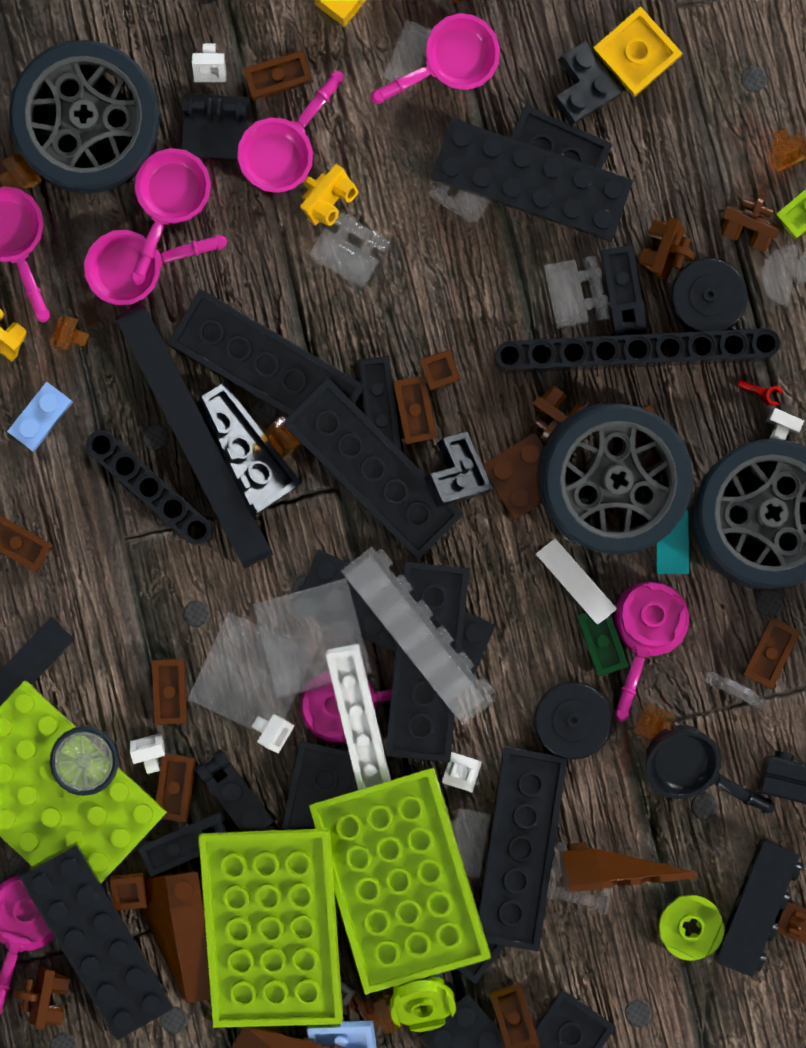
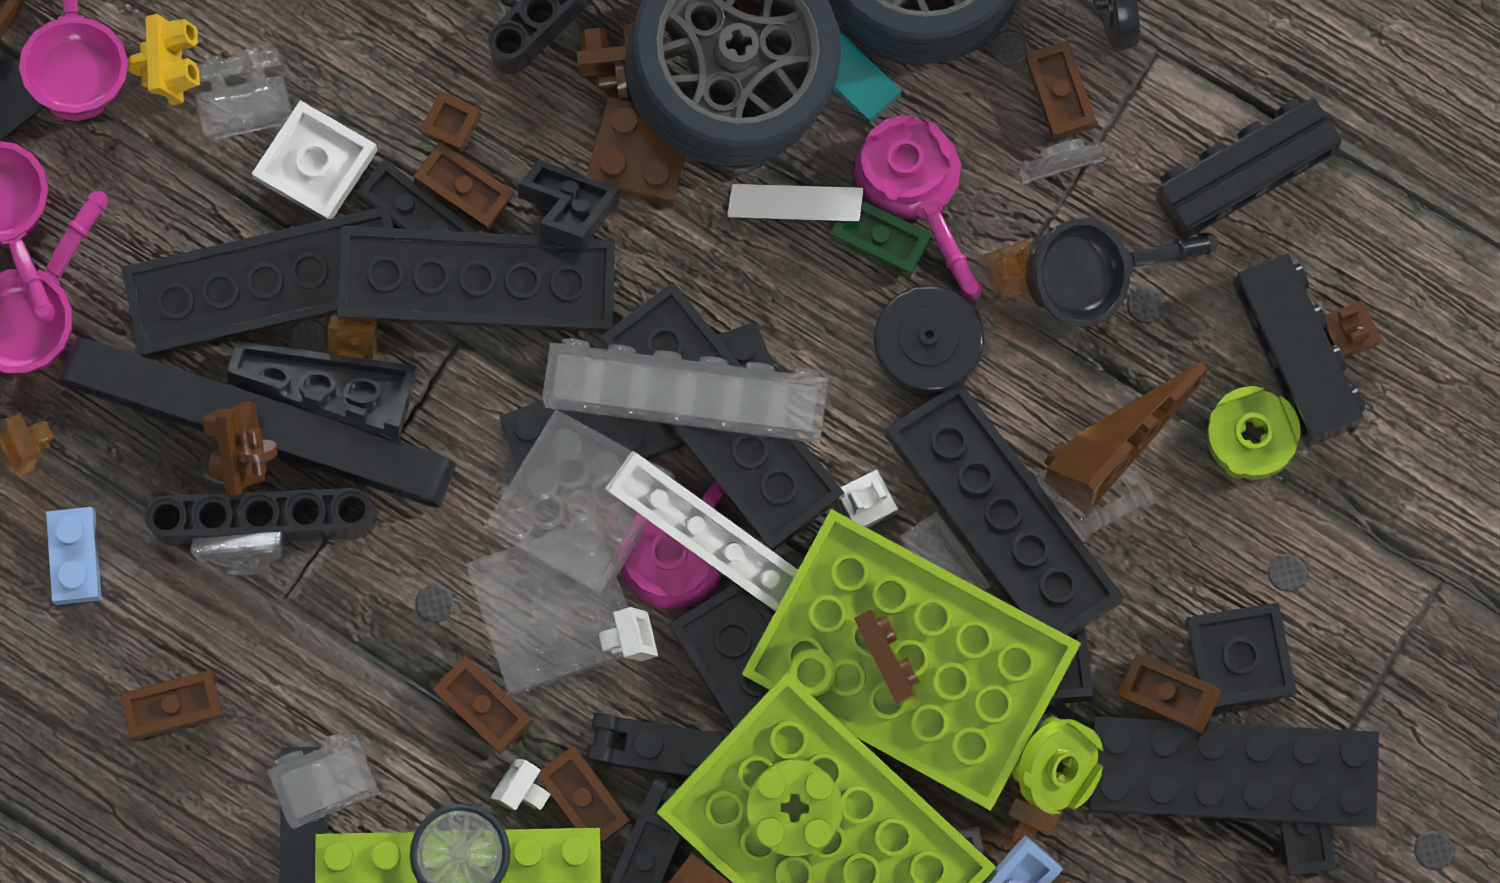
camera: 40 degrees left, 10 degrees down
(53, 657) = (323, 779): none -> clear brick
(121, 497) = (239, 553): none -> clear tile
(169, 446) = (240, 445): none -> reddish brown hips
(286, 901) = (815, 789): none -> lime plate
(344, 840) = (813, 671): none -> lime tile
(352, 323) = (314, 161): none -> white plate
(390, 858) = (879, 637): none -> reddish brown plate

